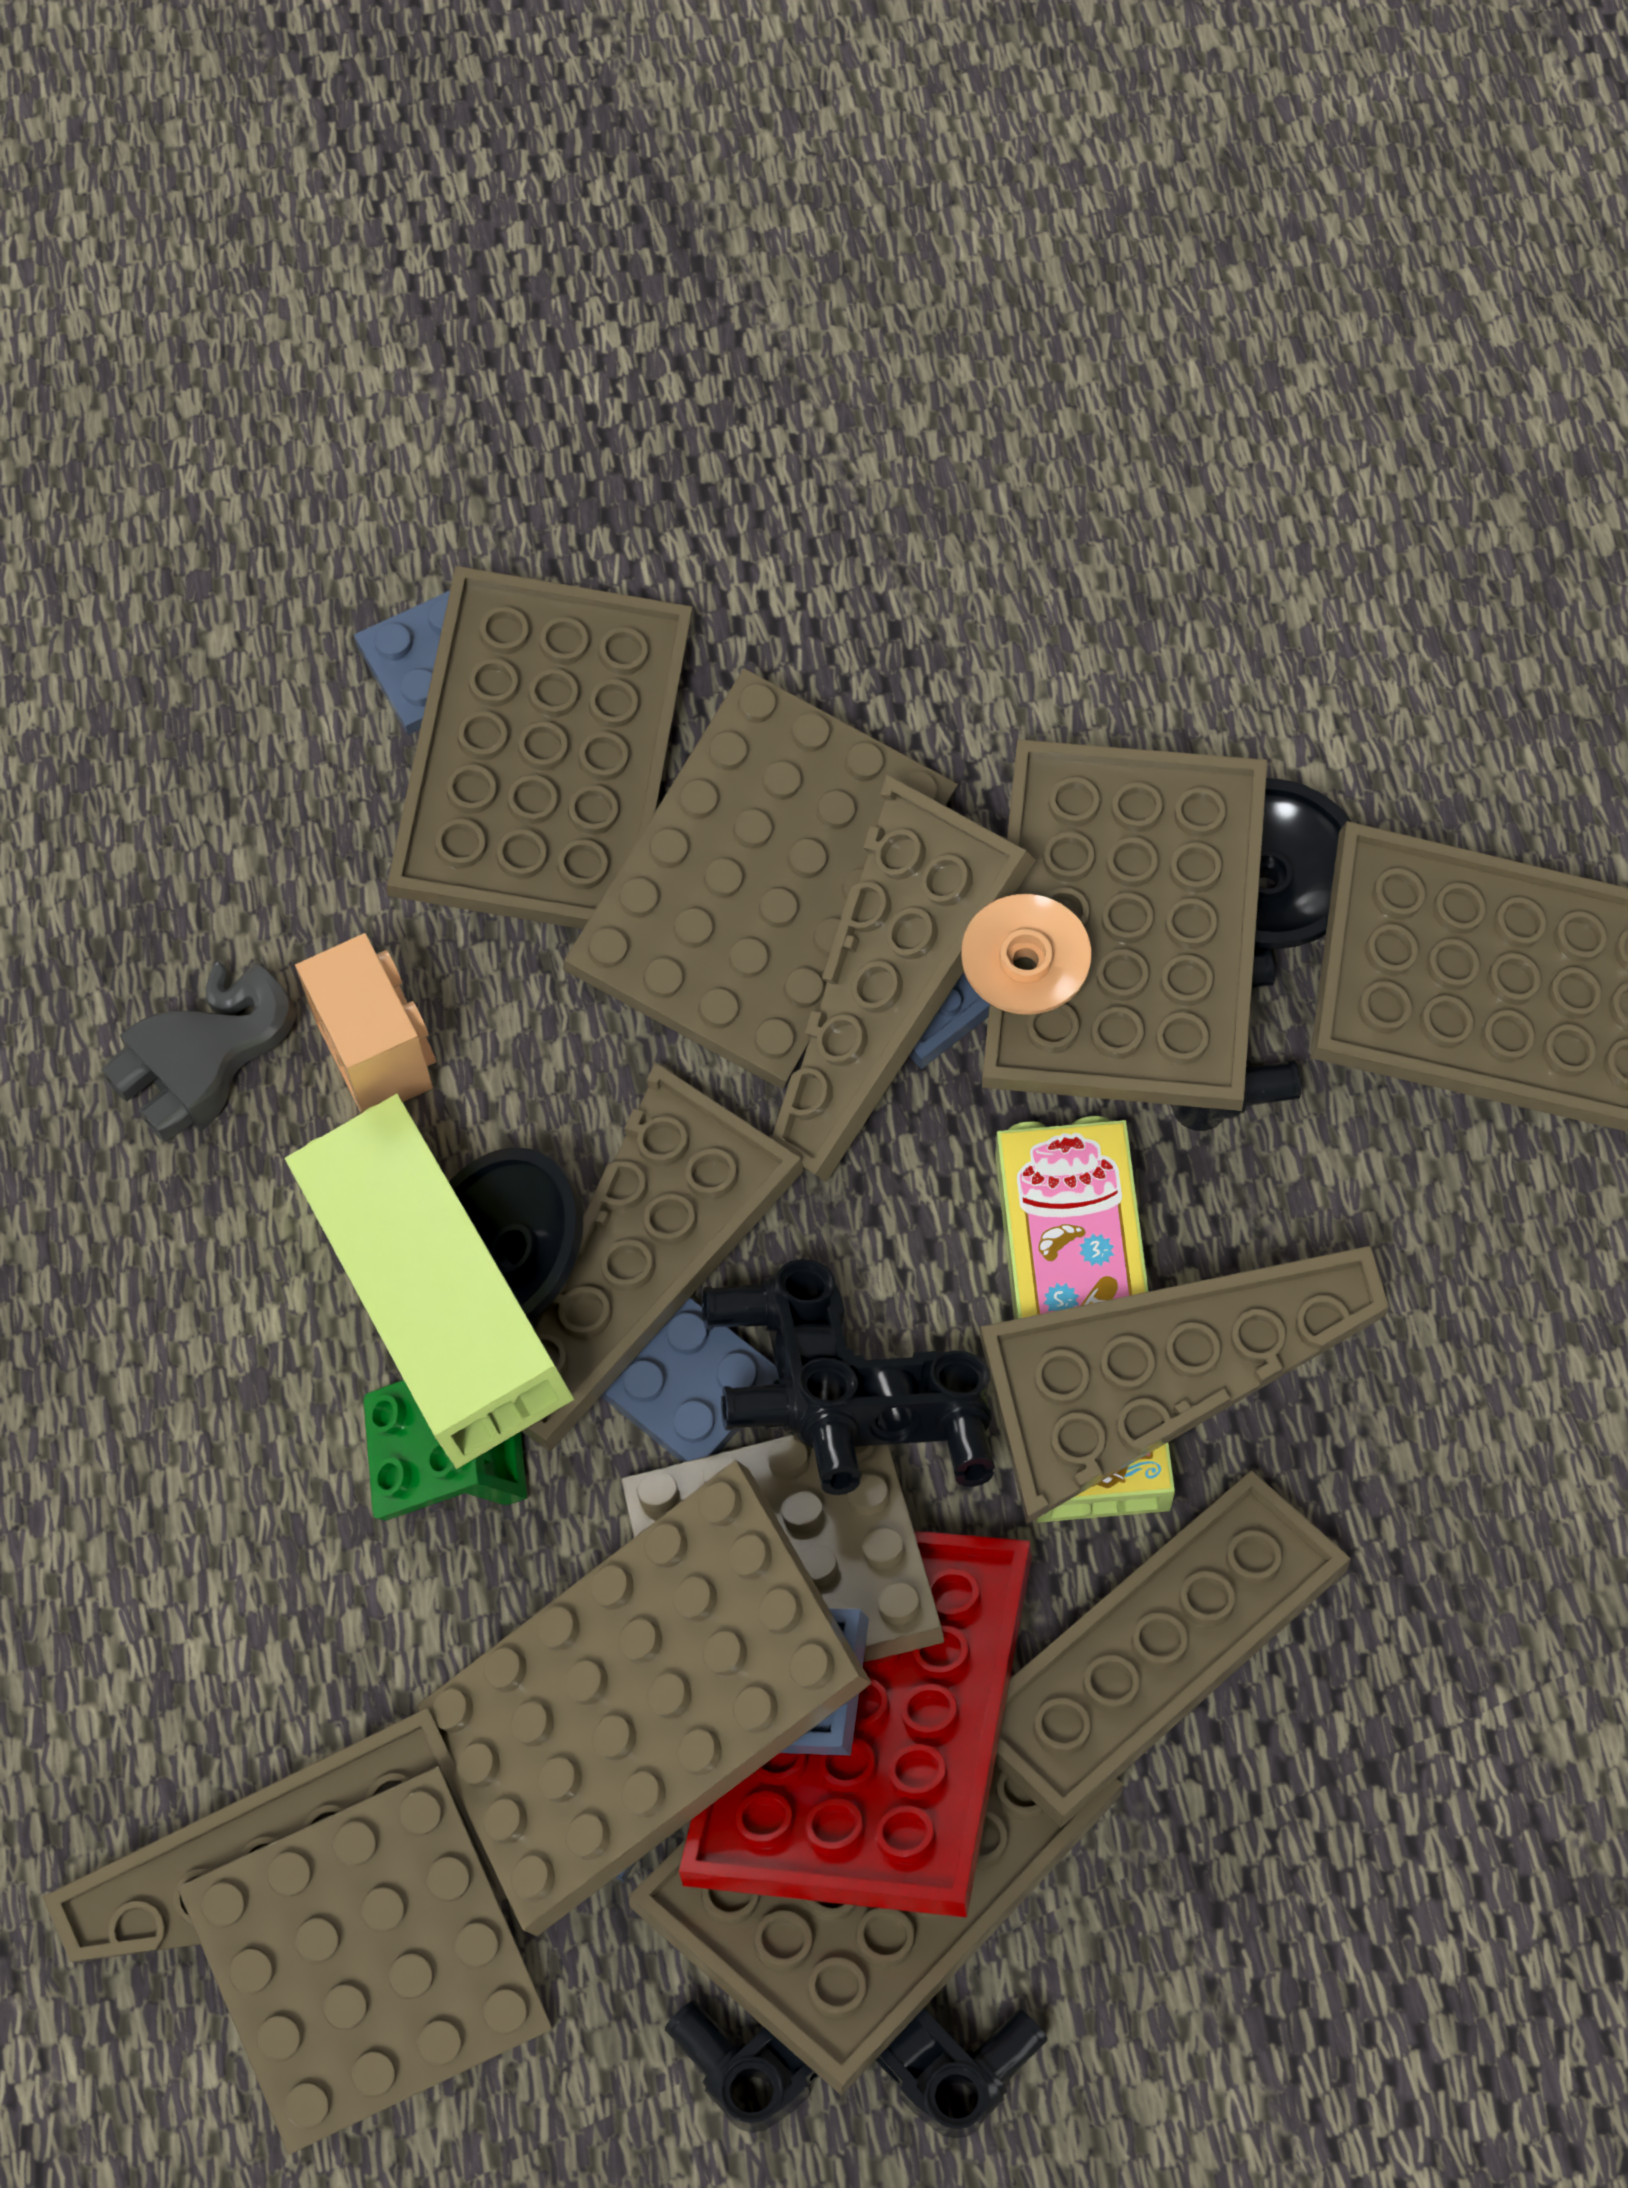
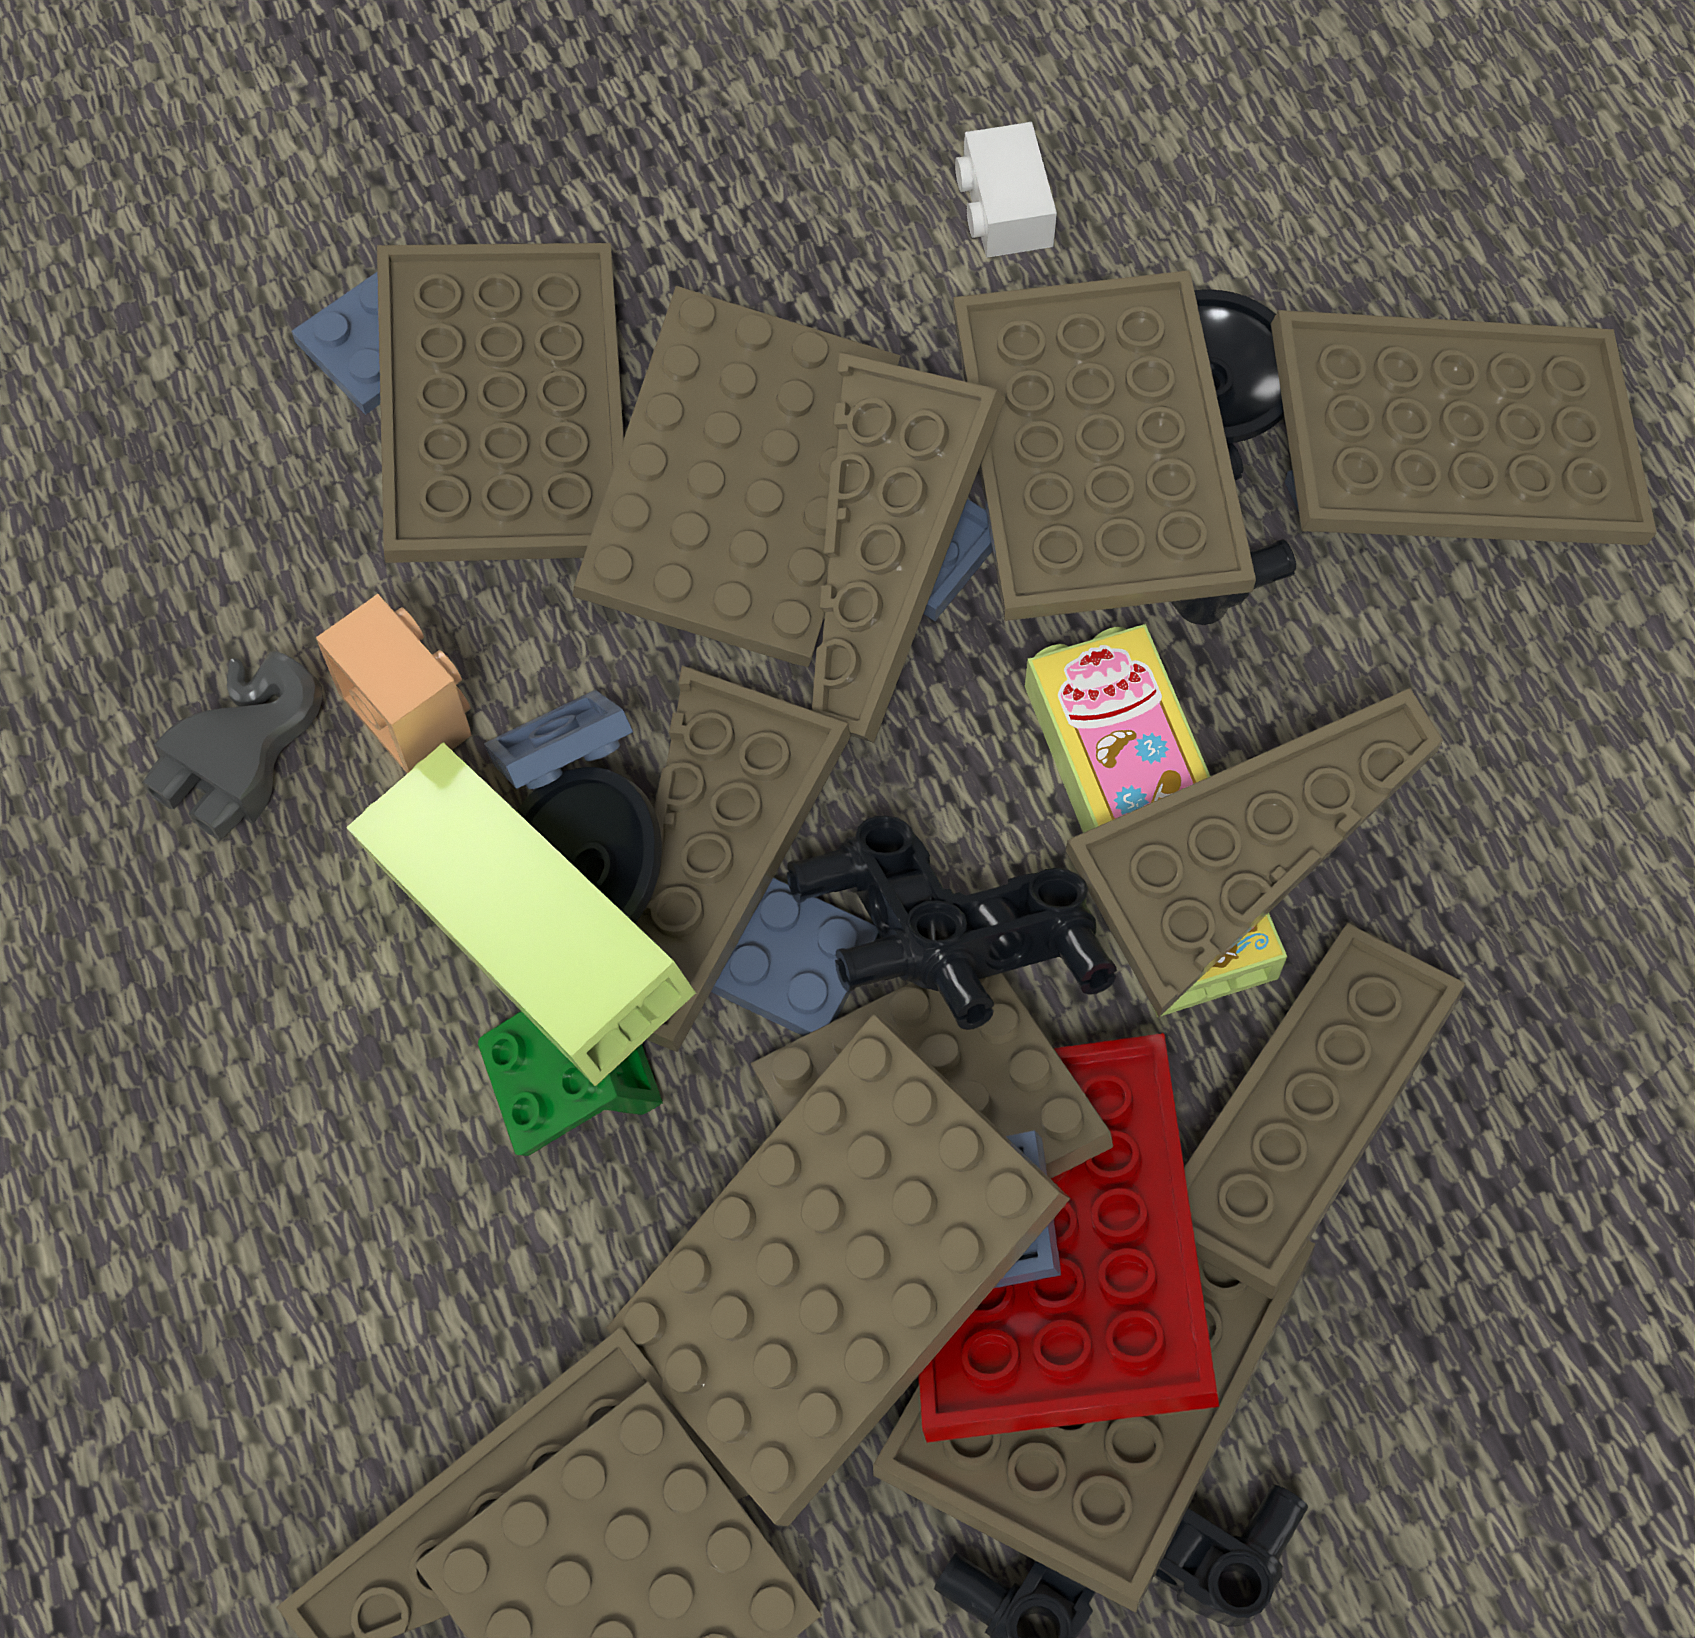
camera: 15 degrees left, 0 degrees up
(491, 1117) = (540, 747): none -> sand blue plate
(1032, 929) = (1023, 463): light nougat dish -> none
(1113, 629) = (1007, 190): none -> white brick

